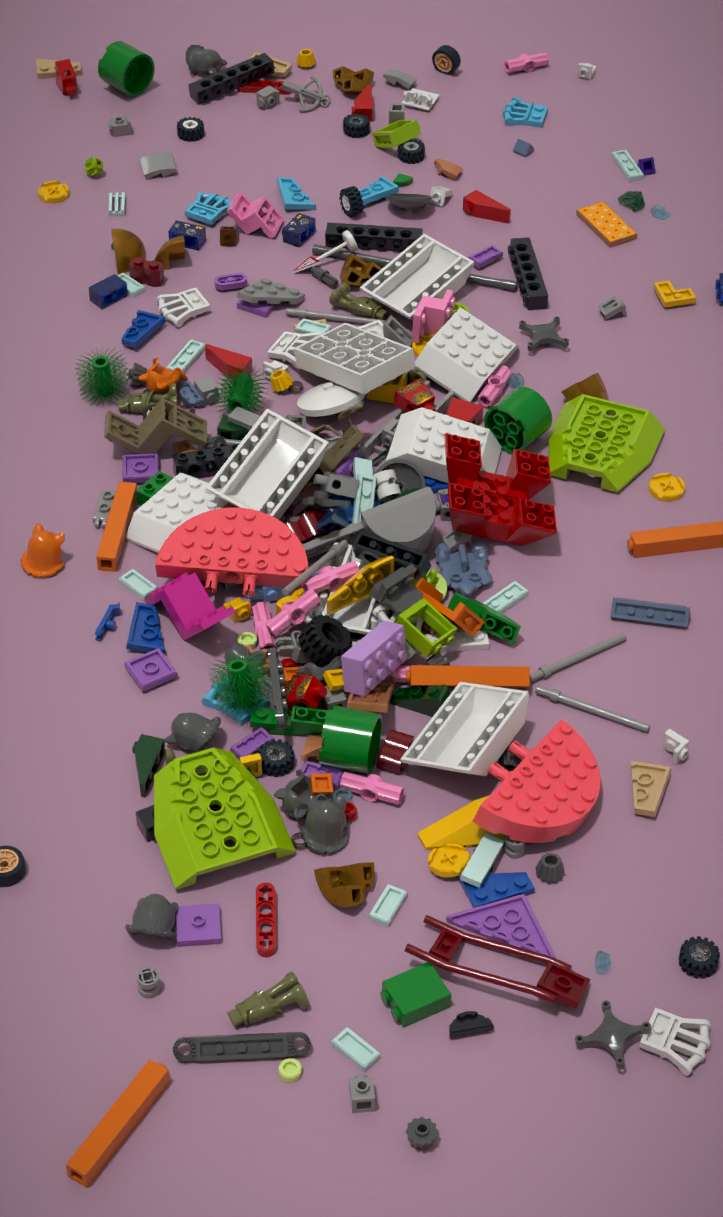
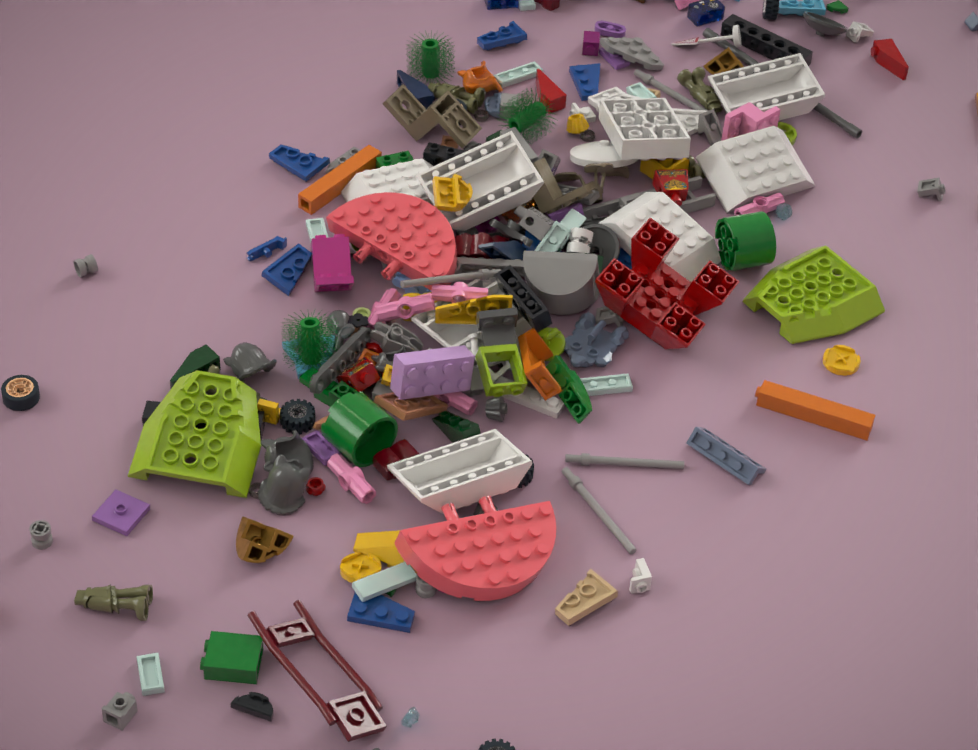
camera: 30 degrees right, 0 degrees up
(43, 553) = (262, 174): orange hair -> none
(73, 526) = (298, 163): none -> blue wing
(97, 409) = (416, 87): none -> dark blue slope
(134, 373) = (464, 65): dark grey piece -> none
(139, 467) = (400, 140): medium lavender plate -> none
(151, 669) = (264, 301): medium lavender plate -> none
(154, 917) = (87, 487): dark grey hair -> none
(187, 303) = (551, 32): white plate -> none
(226, 301) = (591, 43): none -> magenta brick
(241, 608) = (376, 287): yellow bracket -> none
(241, 1046) = (64, 621): dark grey plate -> none
(250, 337) = (586, 79): none -> blue wing
(251, 743) = (286, 394): medium lavender plate -> none
(254, 489) = (451, 193): none -> yellow slope
(255, 645) = (358, 320): none -> black plant
(265, 919) = (177, 537): red beam -> none
(290, 1070) = (85, 661): yellowish green tile -> none
(321, 783) = (309, 453): orange plate -> none
(324, 276) = (693, 56): dark grey axle -> none
(324, 639) = (414, 329): black tyre -> none
(343, 792) = (322, 472): clear light blue piece -> none
(387, 905) = (280, 577): light aqua tile -> none
(448, 168) = (888, 13): nougat slope -> none
(465, 411) = (707, 215): red torso -> none
(484, 675) = (510, 429): orange brick -> none
(486, 256) = (853, 98): medium lavender plate -> none
(506, 922) = (362, 643): medium lavender tile -> none
(528, 273) = (877, 128): black brick -> none
(543, 334) = (844, 183): dark grey piece -> none
(550, 867) = (438, 618): dark grey piece -> none
(590, 386) = (845, 246): pearl gold brick -> none

